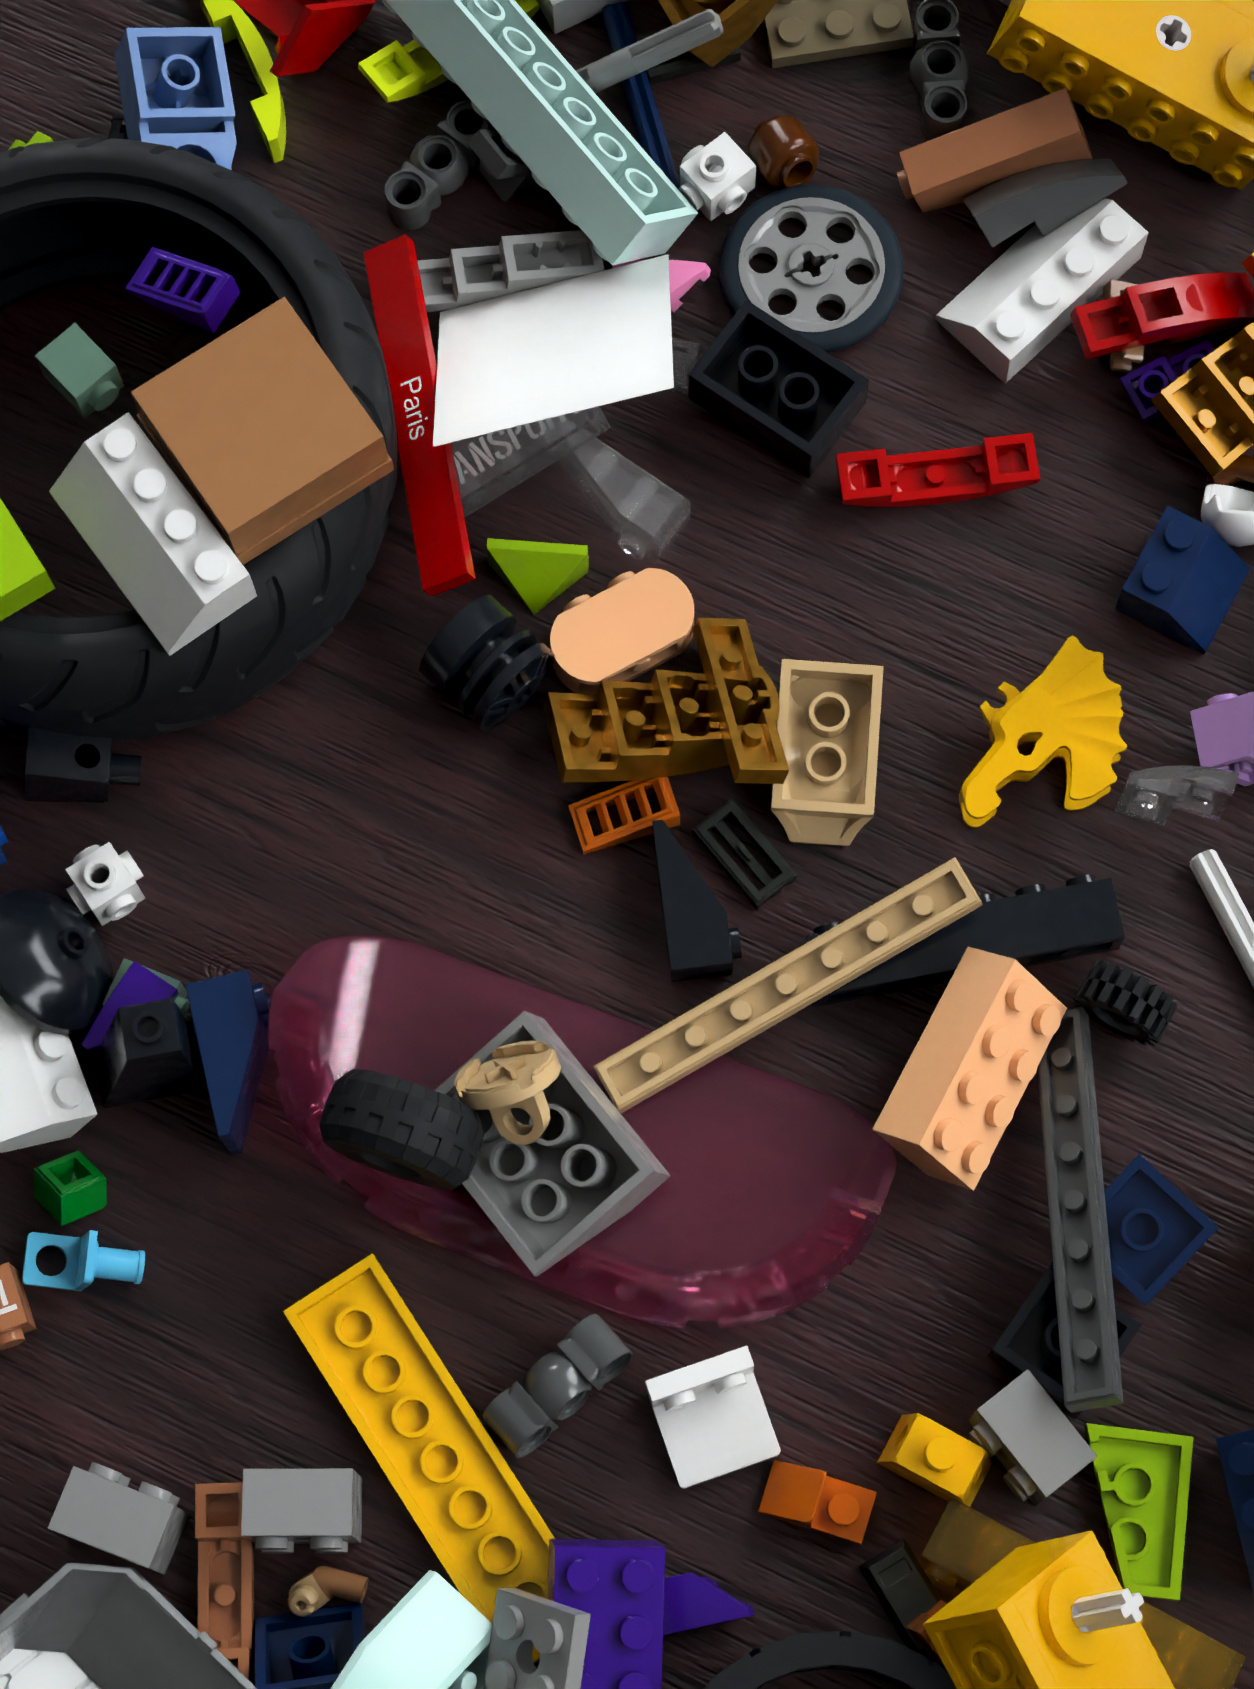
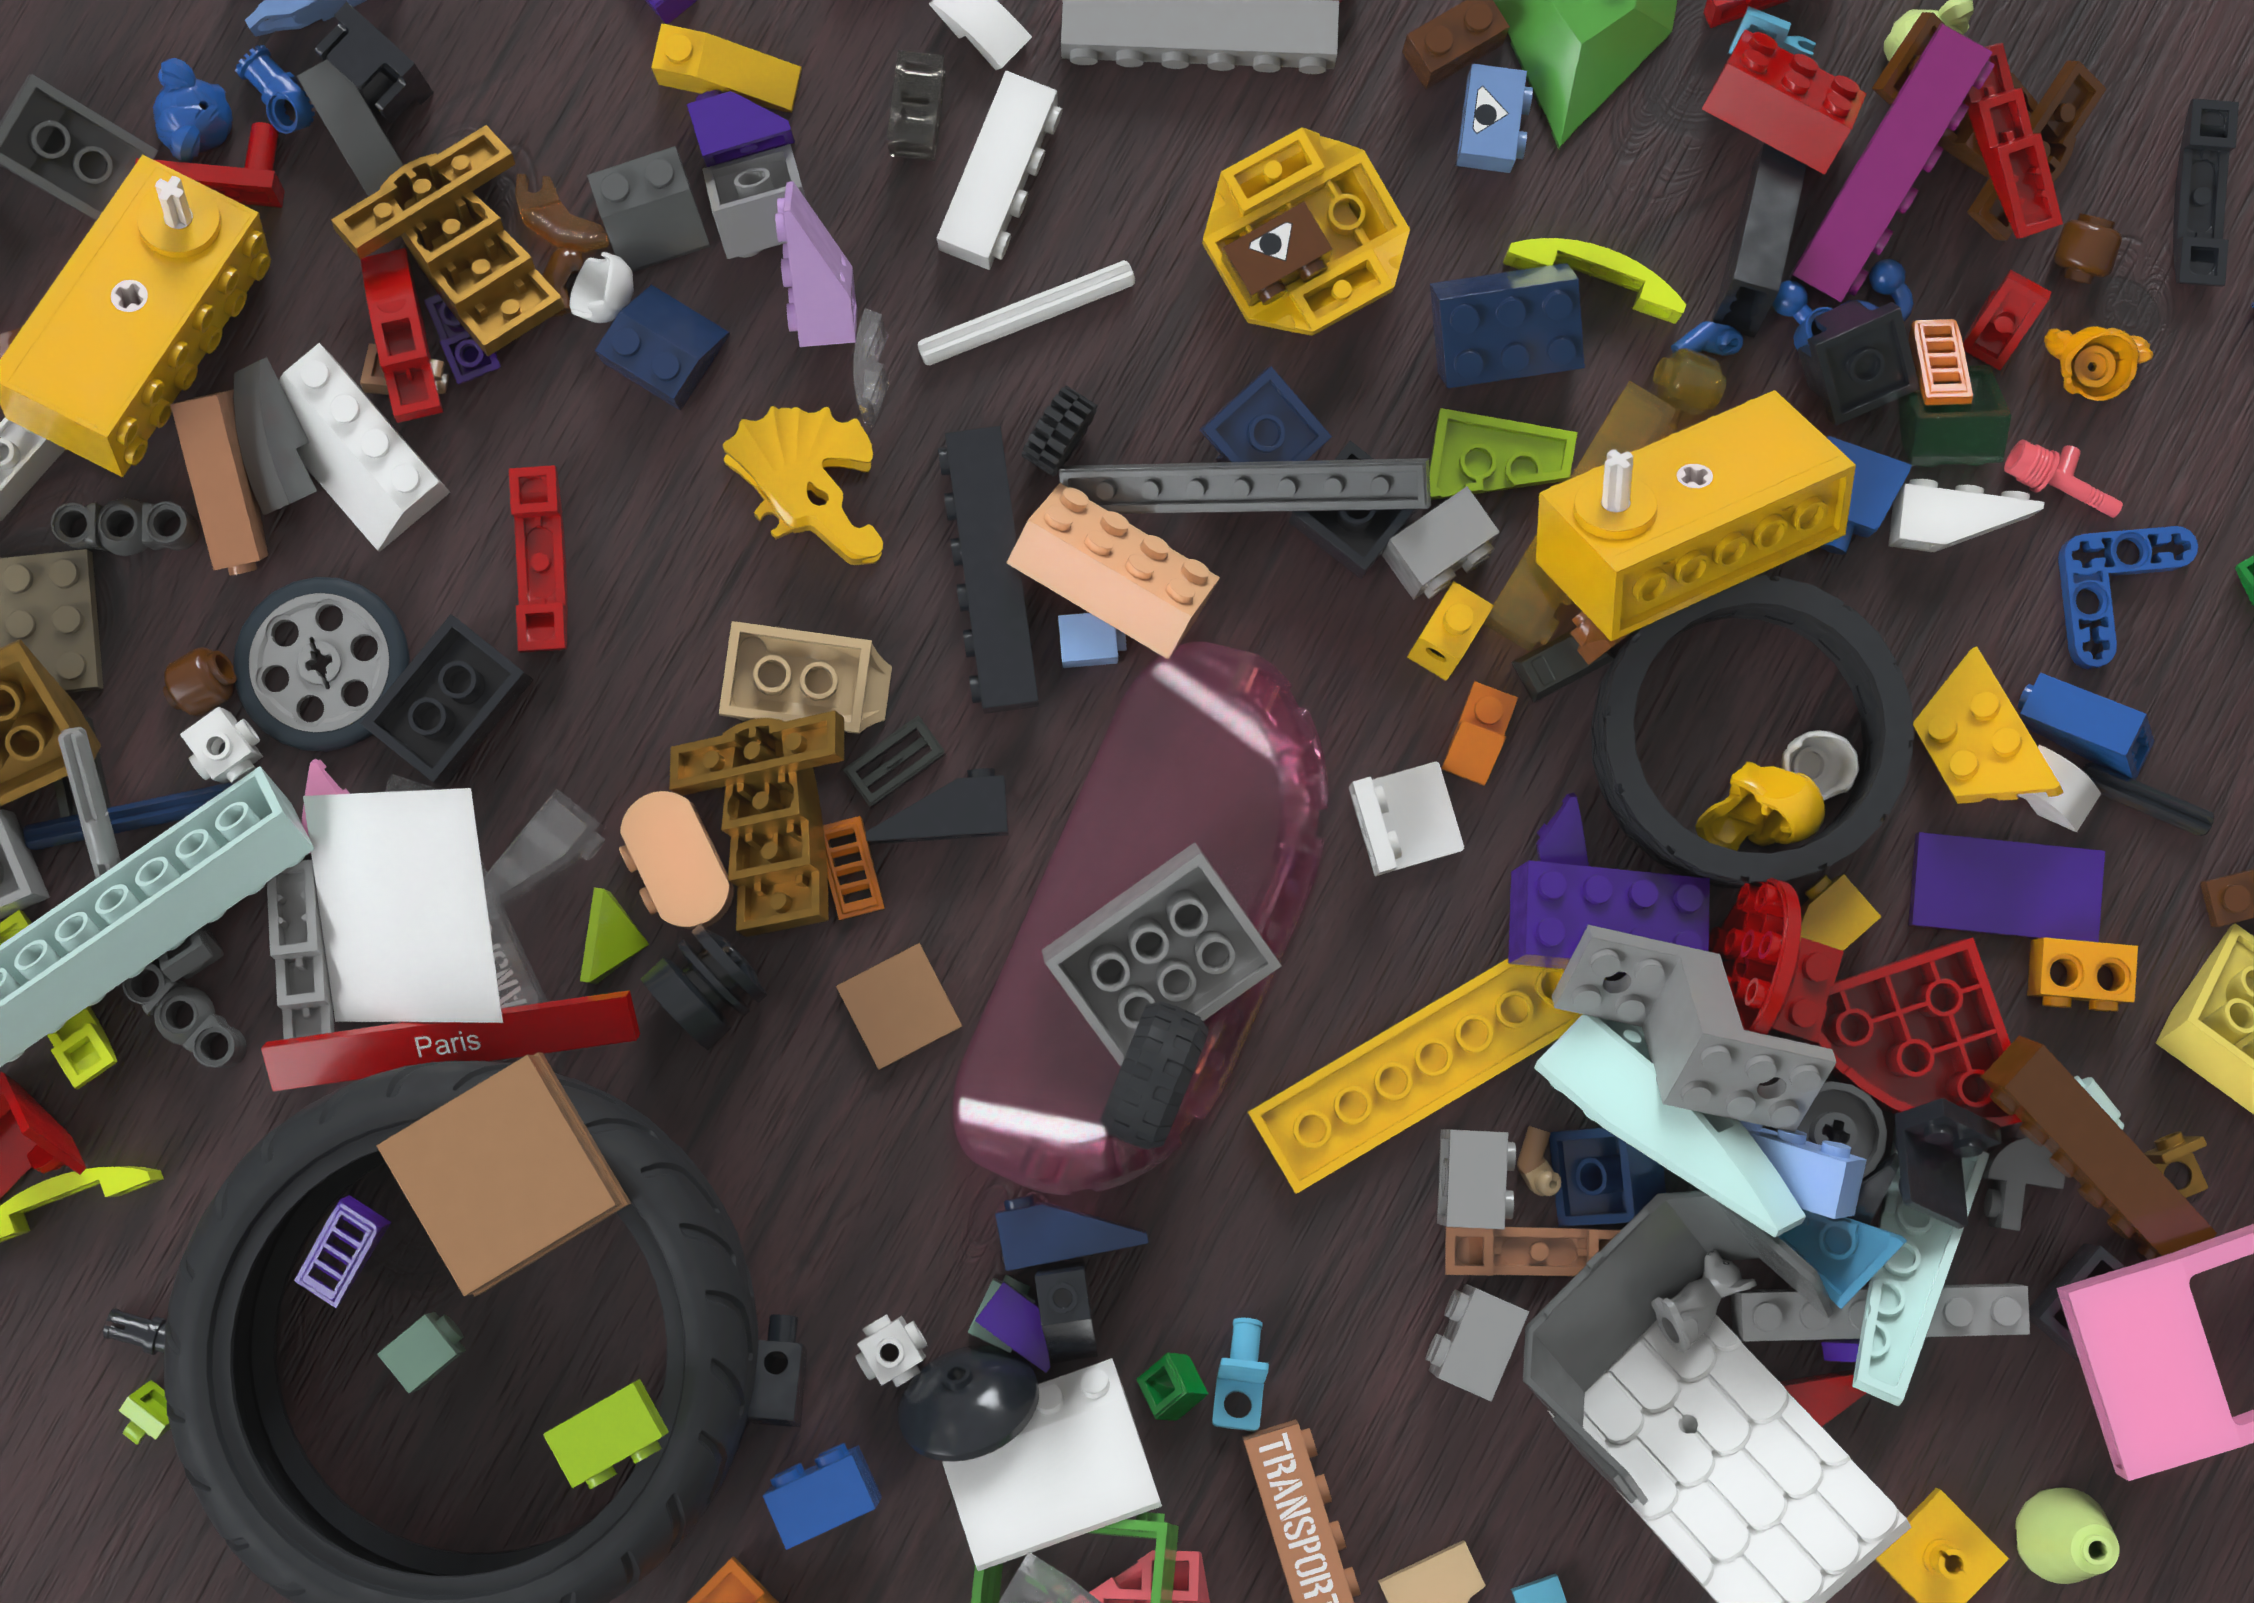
camera: 95 degrees left, 10 degrees up
(151, 535) = (597, 1285): white slope -> none
(178, 90) = (121, 1266): medium blue brick -> none
(477, 874) = (899, 1006): none -> medium nougat tile
(511, 1081) = (1115, 977): tan tile -> none
(557, 1385) = (1373, 951): dark grey piece -> none
(788, 985) = (1028, 726): tan tile -> none
(888, 1047) = (1089, 641): none -> light blue brick

